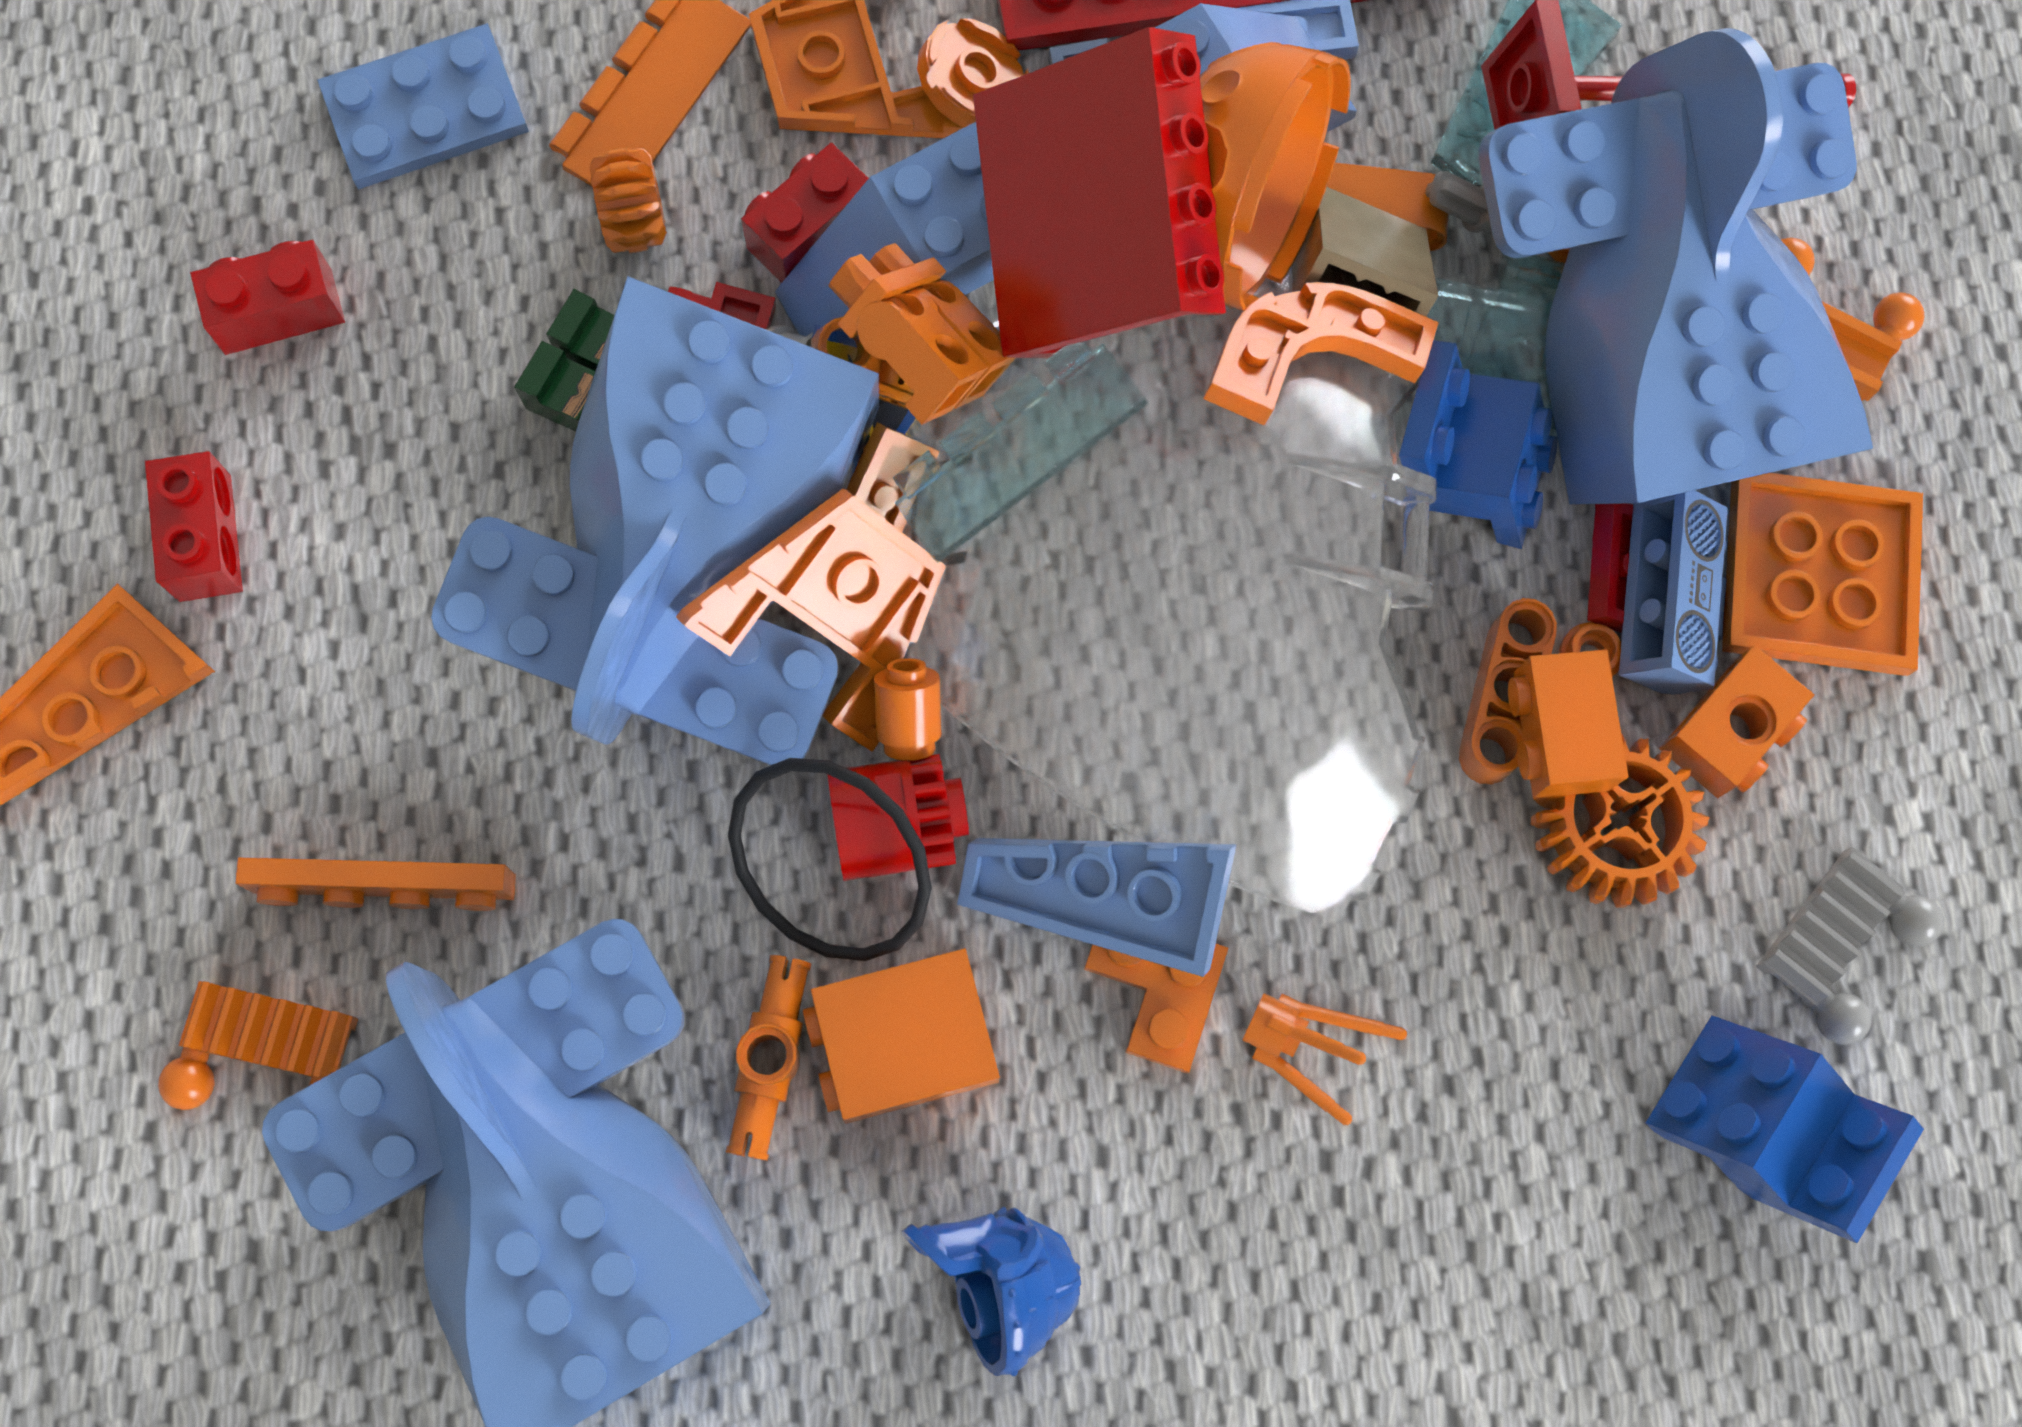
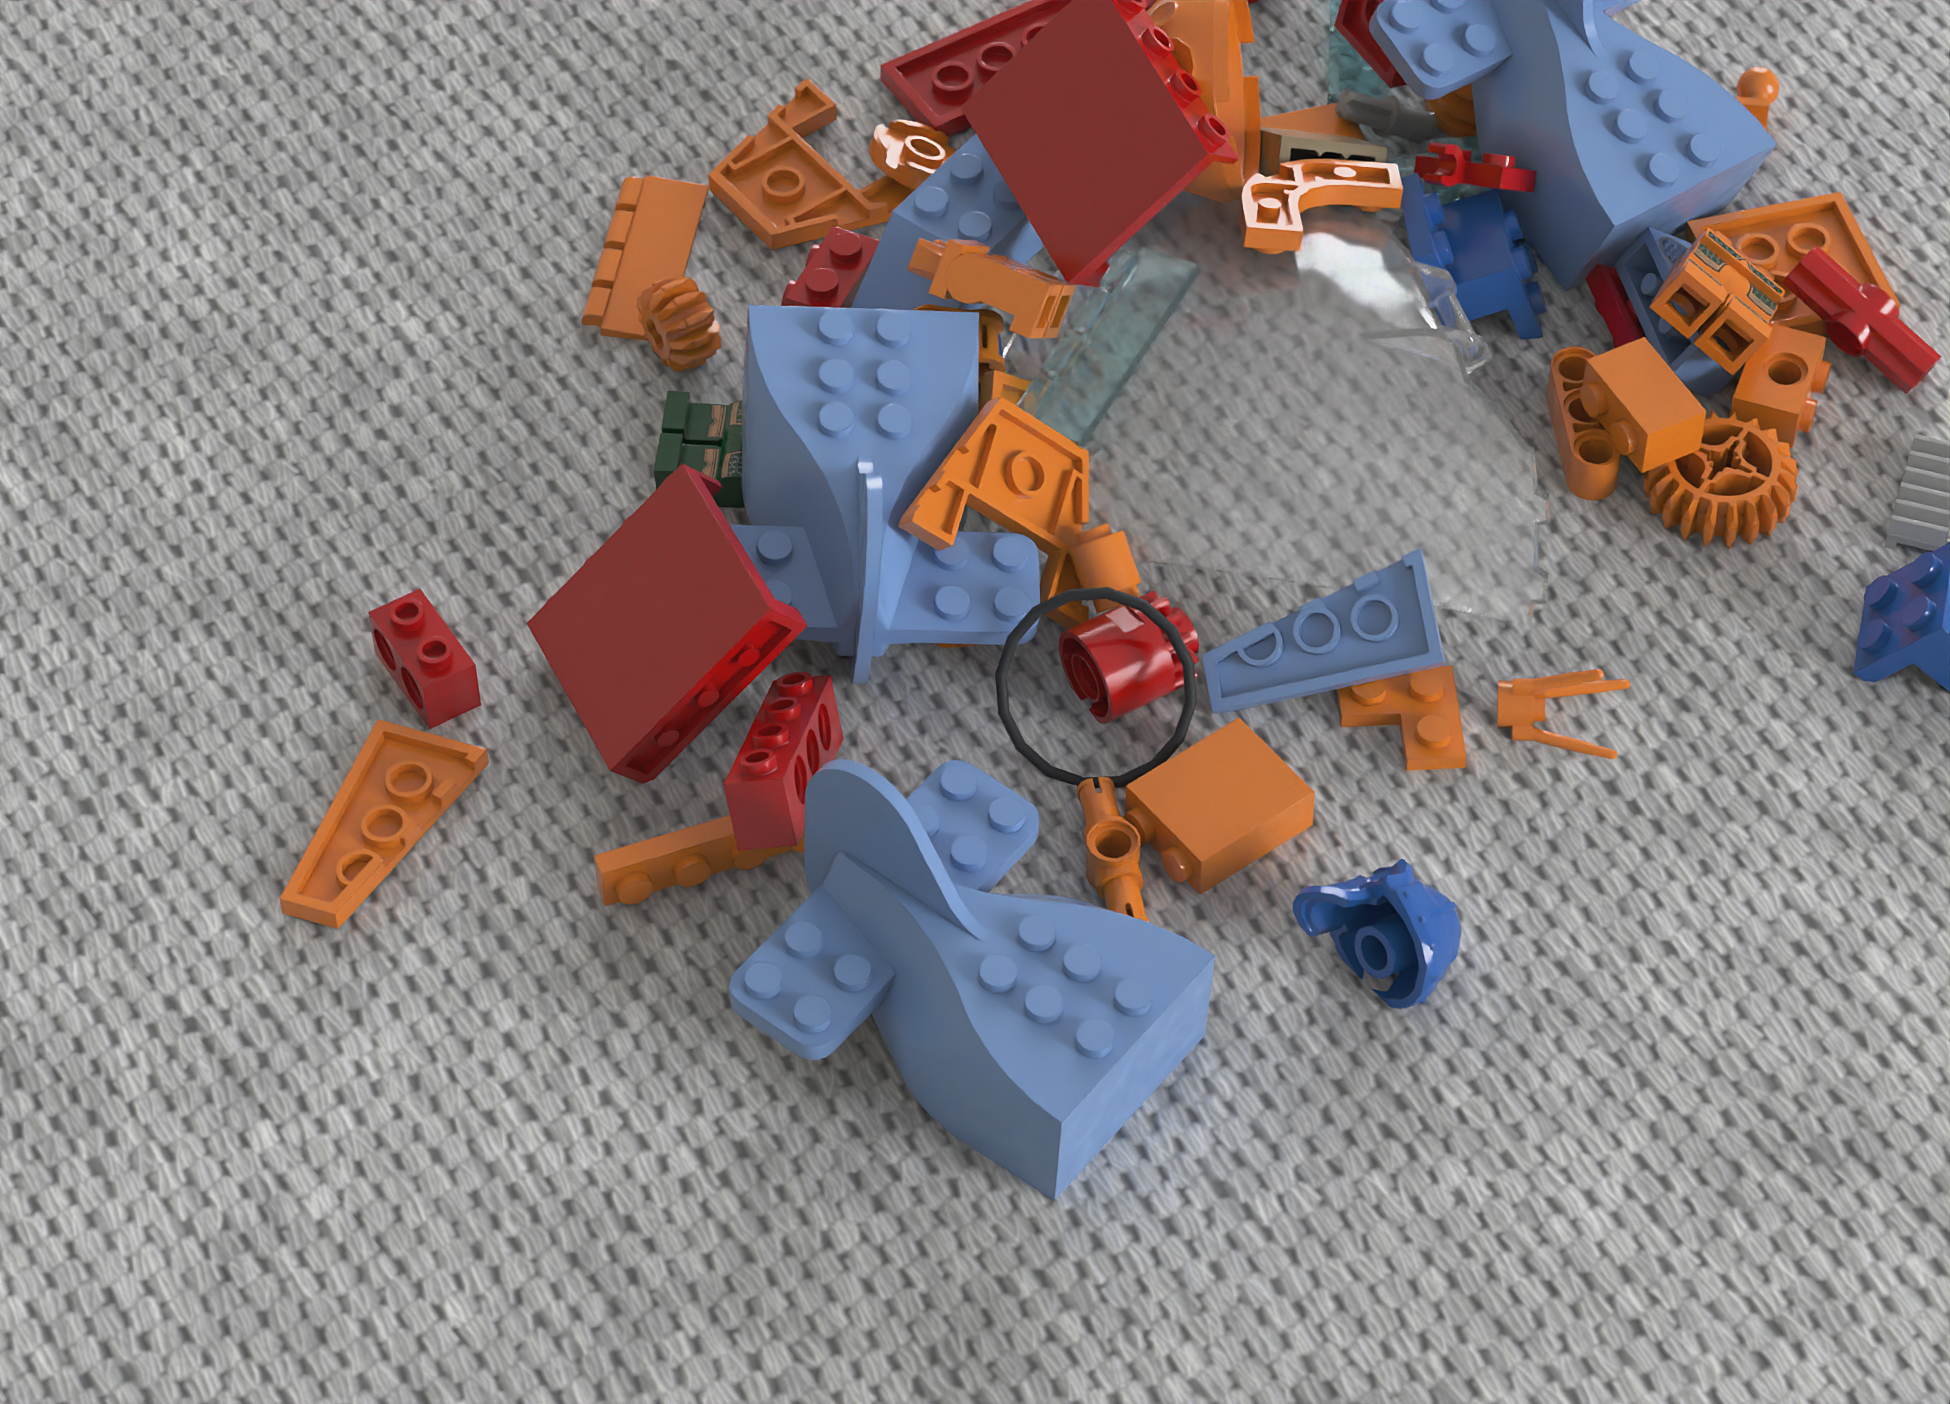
camera: 15 degrees left, 25 degrees down
(252, 1031) = (668, 993): orange gear -> none
(267, 296) = (403, 485): red brick -> none
(408, 612) = (662, 628): none -> red panel
(422, 106) = (457, 326): medium blue plate -> none
(460, 836) = (784, 748): none -> red brick
(1512, 348) = (1455, 167): none -> red plate
(1721, 620) = (1724, 295): none -> orange hips
(1864, 683) = (1861, 319): none -> red piece

